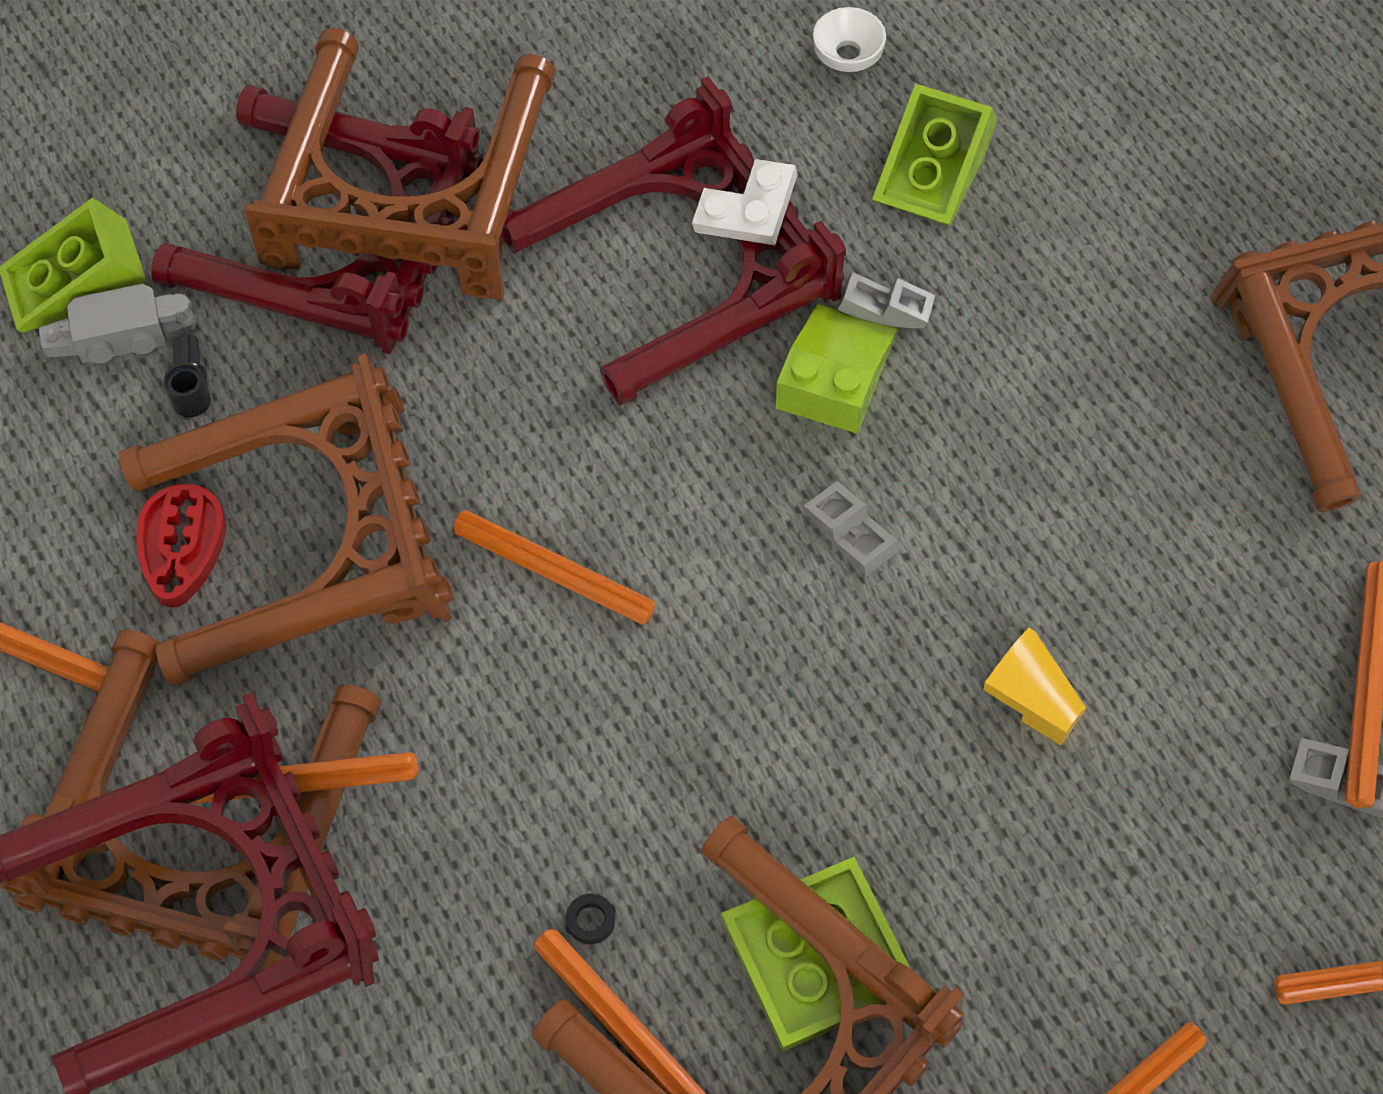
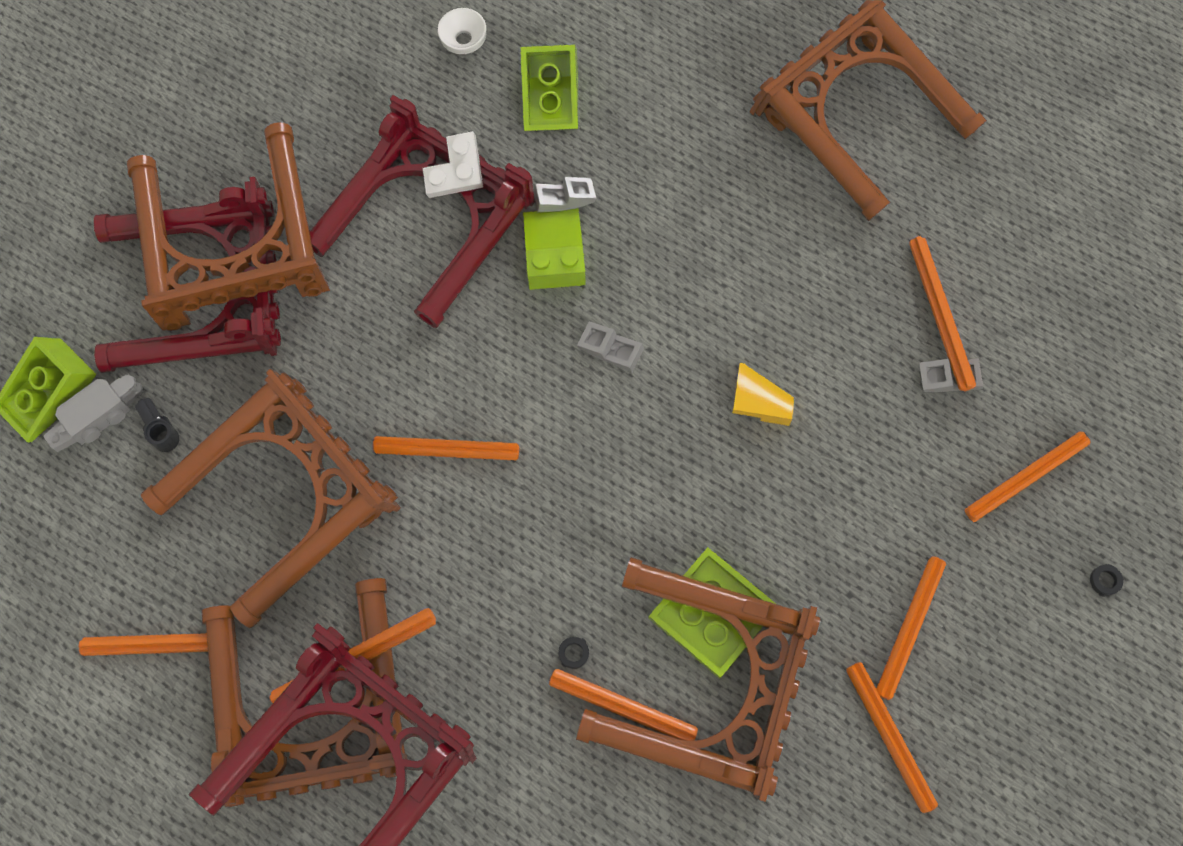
camera: 25 degrees left, 10 degrees up
(157, 533) = (189, 535): red piece -> none

